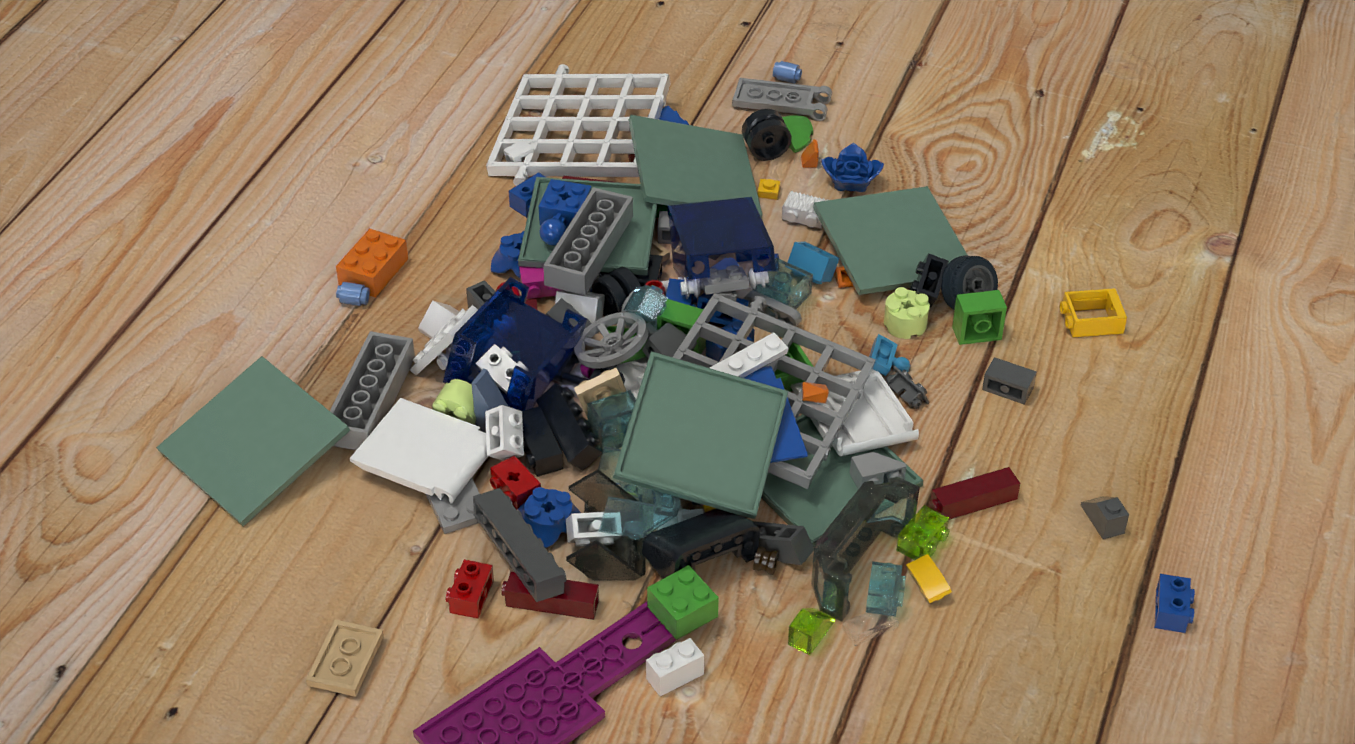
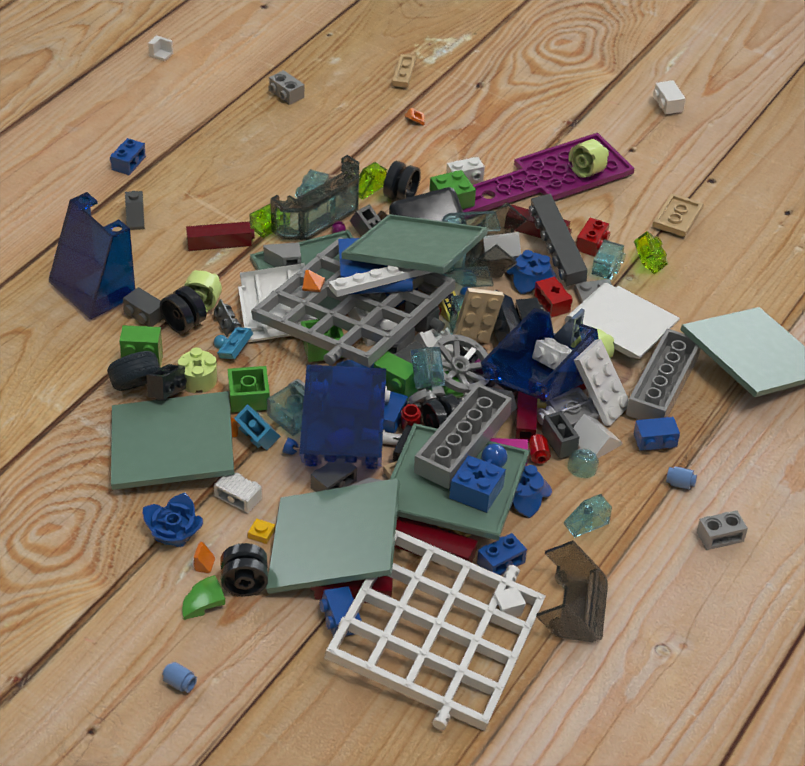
camera: 170 degrees left, 0 degrees up
(312, 249) = (722, 530): none -> light grey brick
(373, 261) = (664, 502): orange brick -> none
(382, 321) = (656, 433): none -> blue brick
(386, 567) = (651, 252): none -> clear neon green brick
(445, 546) = (608, 260): none -> clear light blue brick
(447, 242) = (589, 516): none -> clear light blue slope
(450, 166) = (584, 598): none -> clear smoke windscreen
(456, 295) = (583, 463): none -> clear light blue hair
(487, 696) = (588, 158): none -> yellowish green brick
(504, 433) = (560, 310): white brick -> none
(760, 610) = (401, 181): none -> black wheel
(782, 97) = (211, 644): light grey hinge -> none
(840, 299) = (248, 387): none -> bright green brick
(929, 578) = (278, 188): yellow slope -> none
(951, 398) = (206, 286): none -> yellowish green brick
(958, 366) = (183, 309): none -> black wheel
(1093, 299) = (43, 337): yellow window -> none
(1094, 363) = (92, 261): none -> clear blue windscreen

